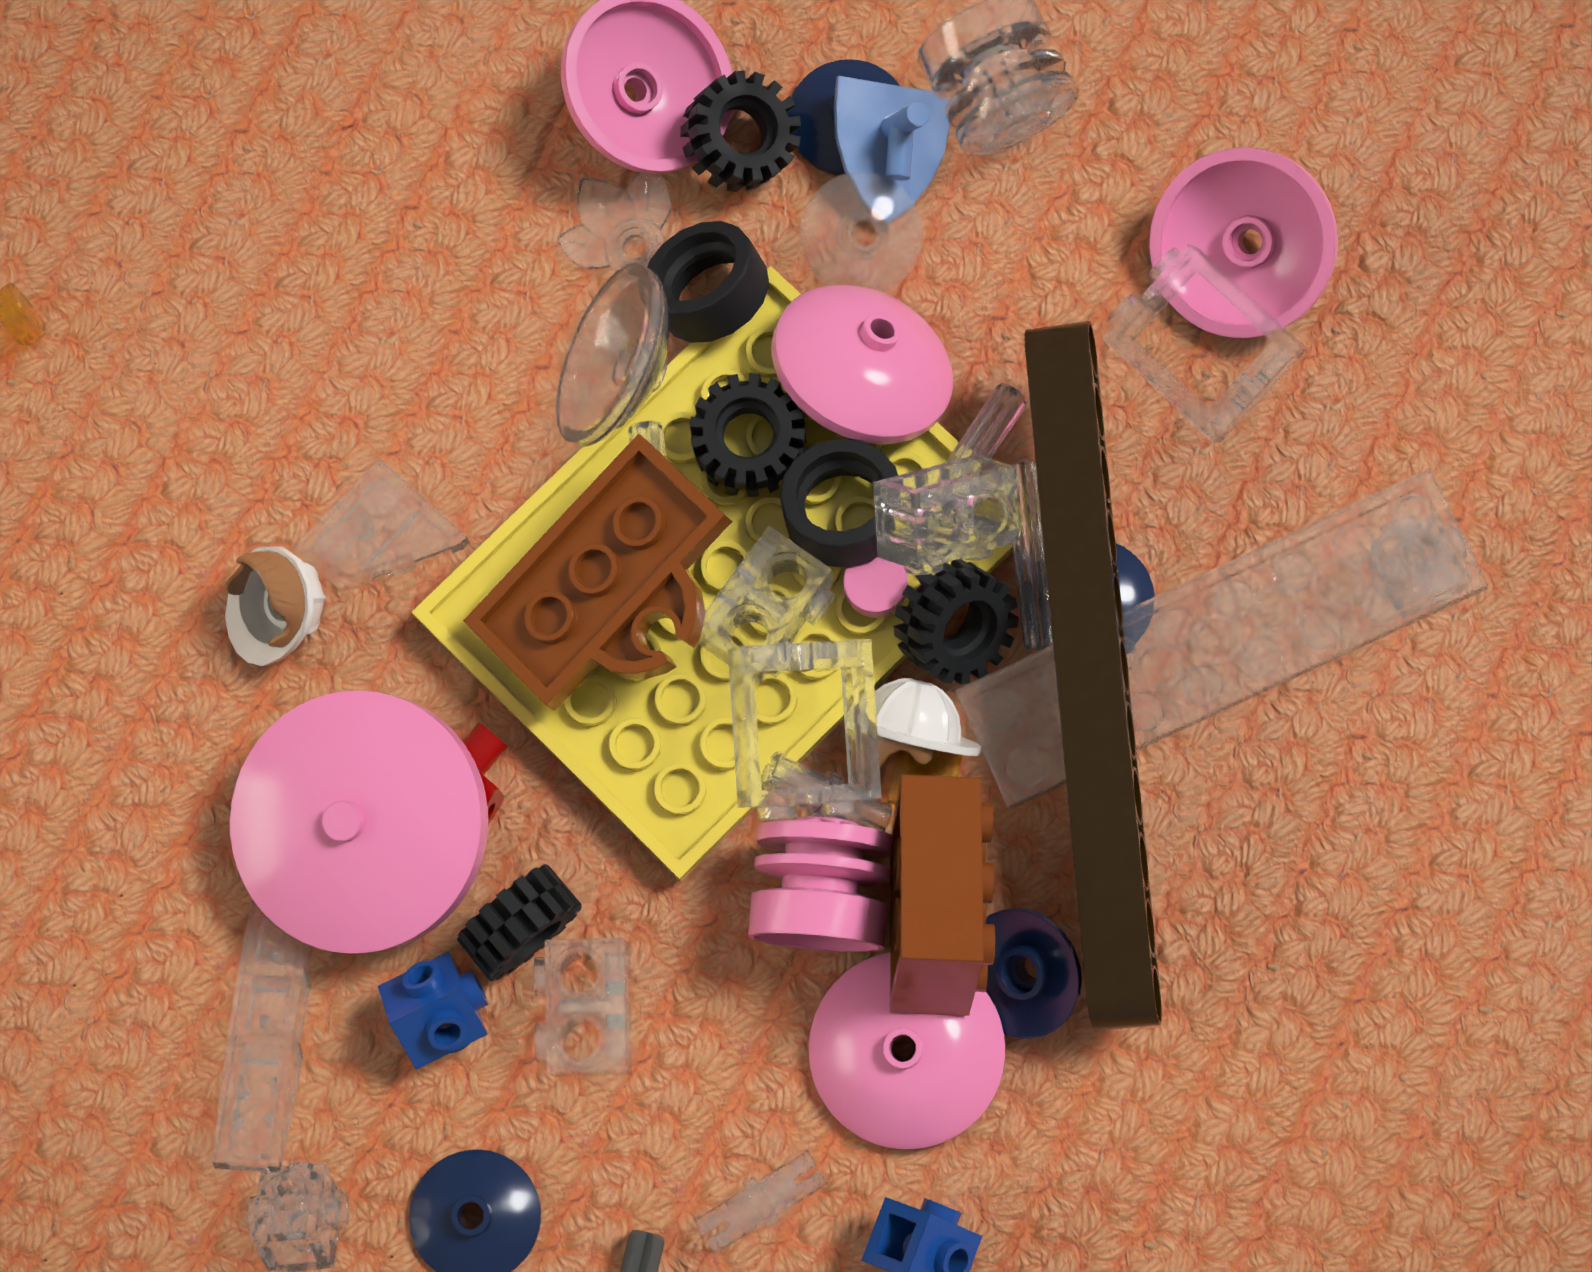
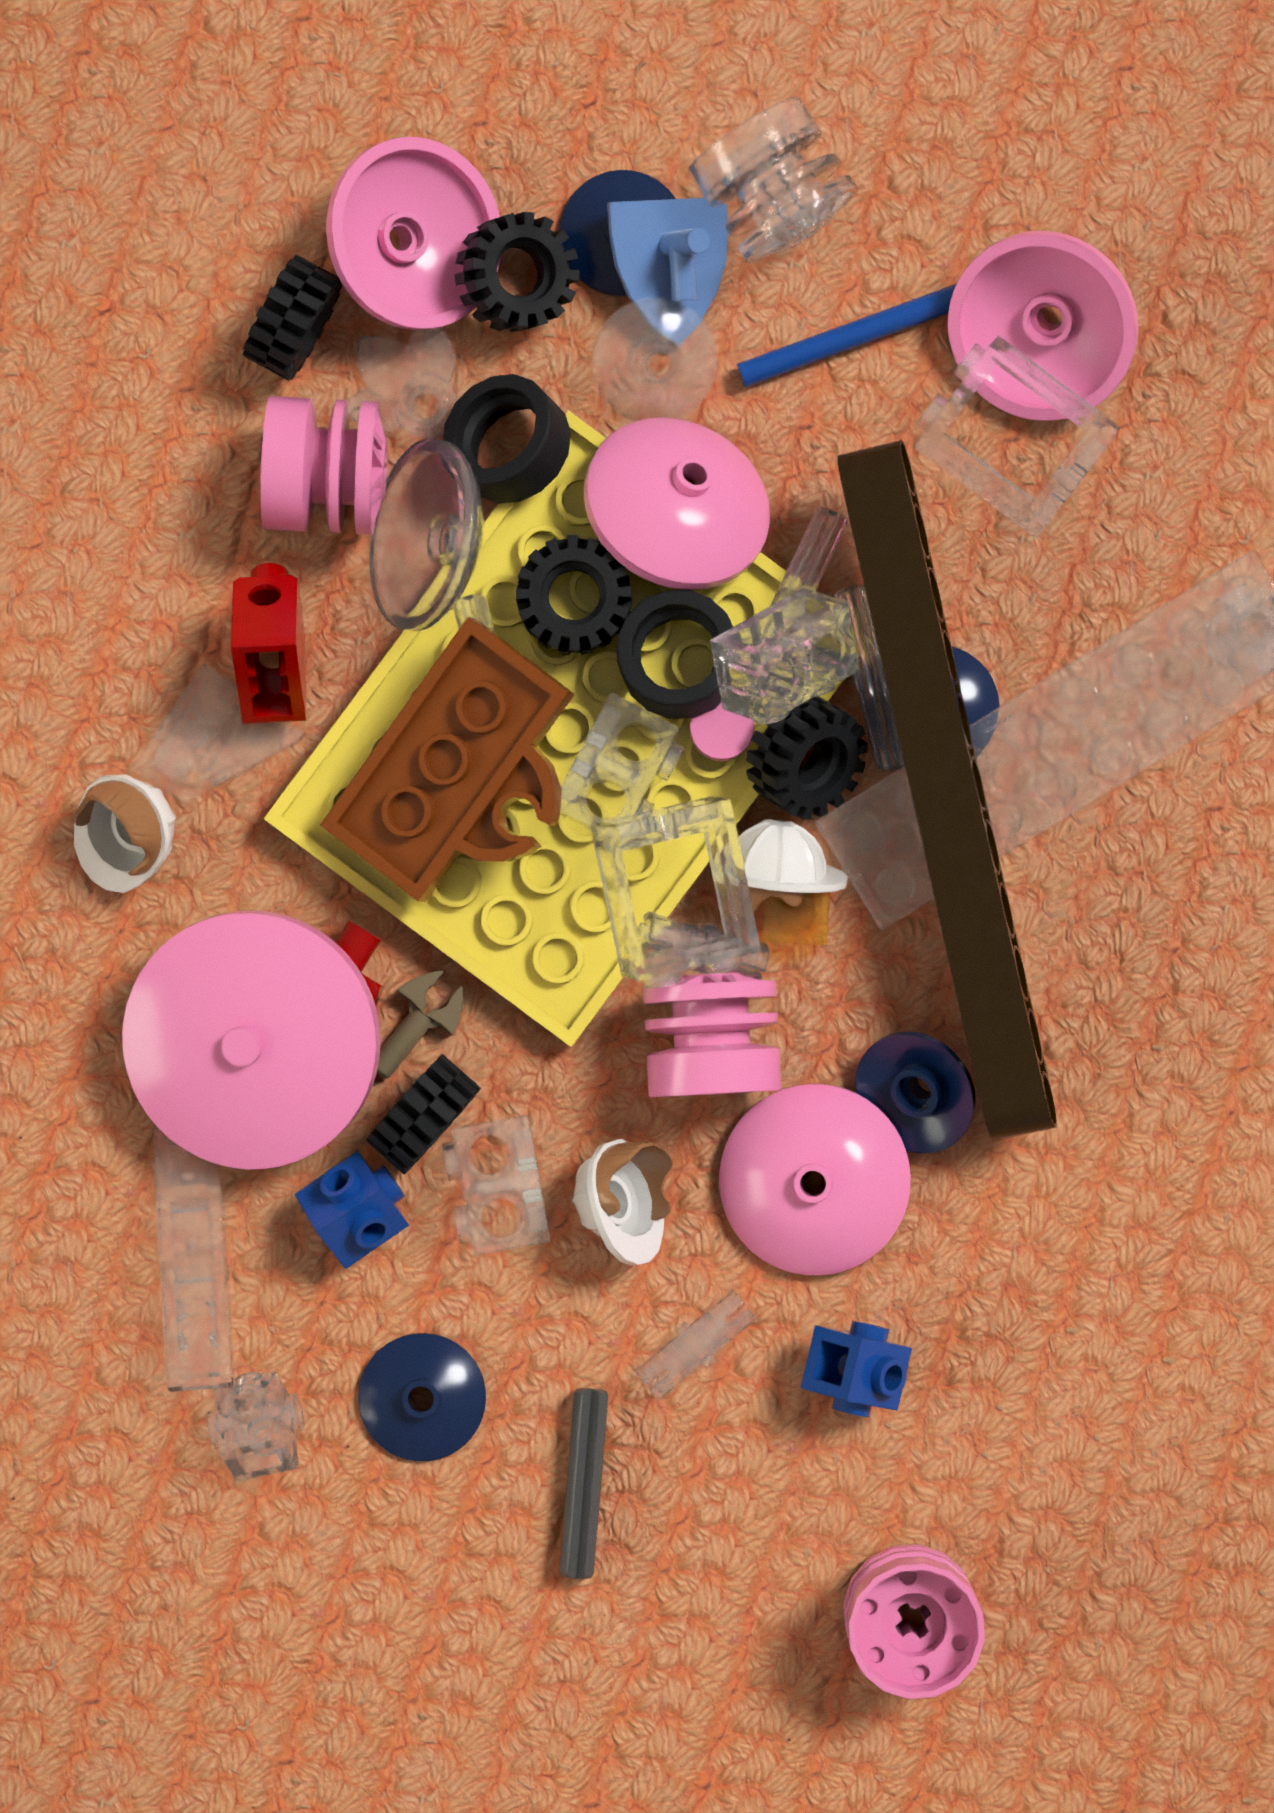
camera: 15 degrees left, 10 degrees up
(442, 418) = (269, 619): none -> red torso
(508, 279) = (321, 465): none -> bright pink wheel
(518, 143) = (292, 317): none -> black tyre
(533, 834) = (418, 1022): none -> dark tan bar
(709, 1037) = (624, 1198): none -> white piece
(940, 895) = (828, 1033): dark orange brick -> none
(1047, 238) = (845, 337): none -> blue bar

